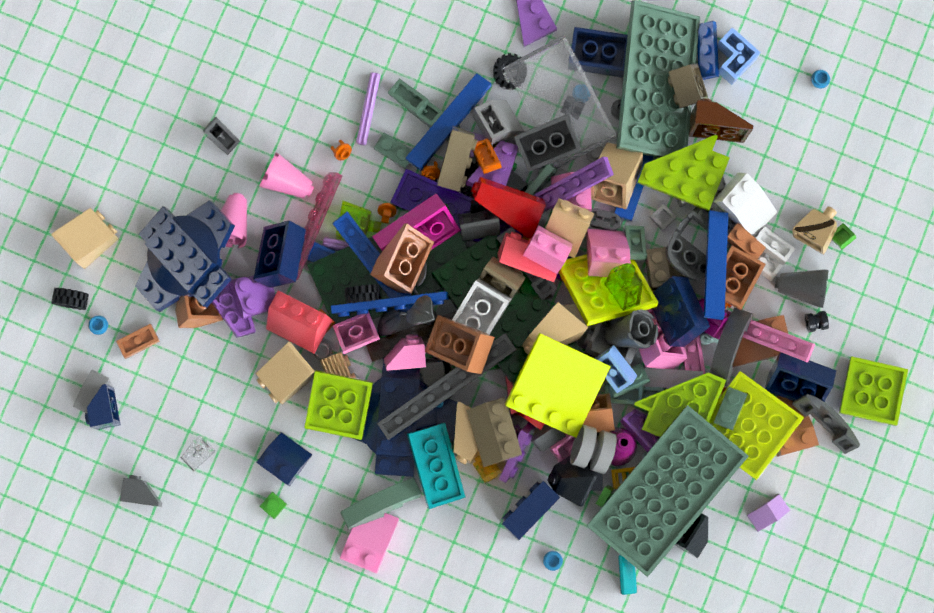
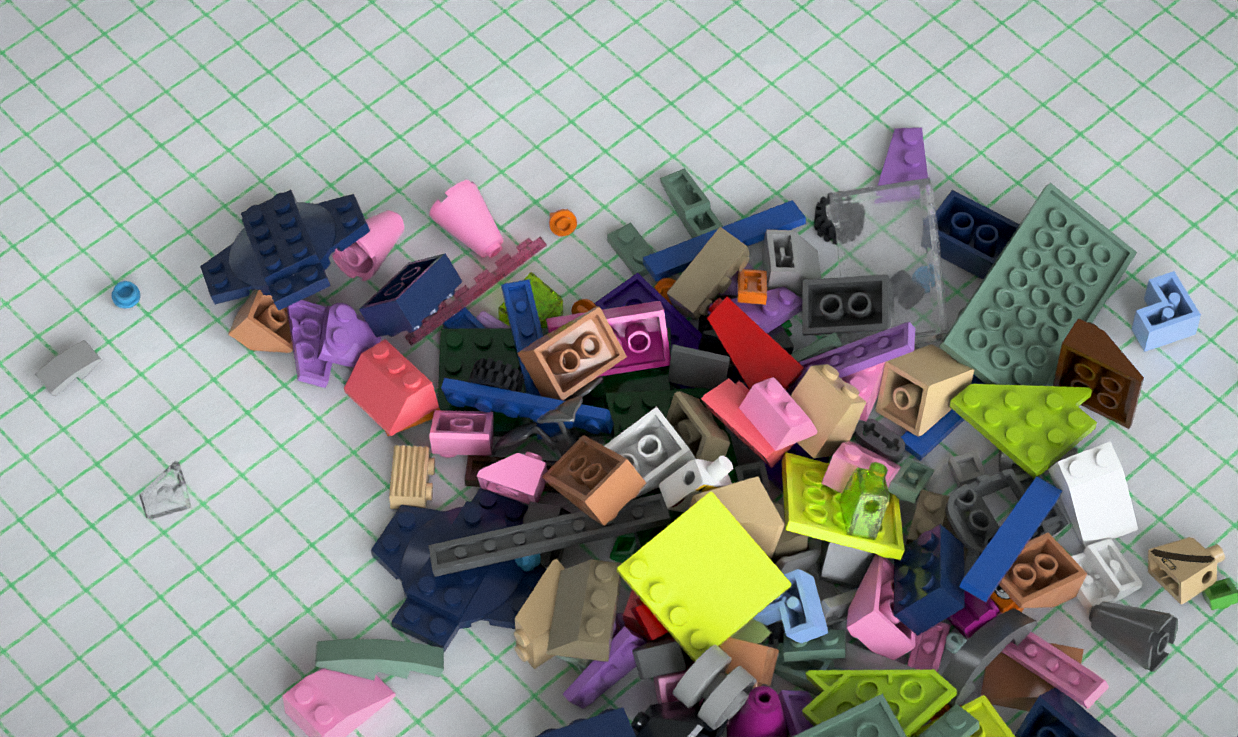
camera: 25 degrees right, 25 degrees down
(70, 298) = (108, 244): black tyre -> none
(86, 237) = (170, 186): tan slope -> none
(103, 409) = (72, 386): dark blue slope -> none
(138, 341) = (166, 333): nougat plate -> none
(138, 491) = (56, 509): dark grey slope -> none
(221, 136) = (411, 142): dark grey slope -> none
(273, 505) = (230, 604): bright green plate -> none
(284, 459) = (276, 551): dark blue slope -> none
(285, 374) = (340, 444): tan slope -> none
(323, 351) = (404, 437): light grey plate -> none
(338, 405) = (388, 505): lime plate -> none
(368, 108) = (624, 190): lavender axle -> none
(436, 465) = (482, 640): teal plate -> none
(486, 473) = (552, 678): clear yellow slope -> none
(530, 315) = (692, 479): none -> white torso
(633, 331) = (851, 568): dark grey cone -> none
(687, 85) = (1076, 301): dark tan slope -> none
(708, 50) = (1128, 295): blue plate -> none
(744, 241) = (1070, 536): nougat plate -> none
(816, 321) = (1124, 685): black wheel -> none

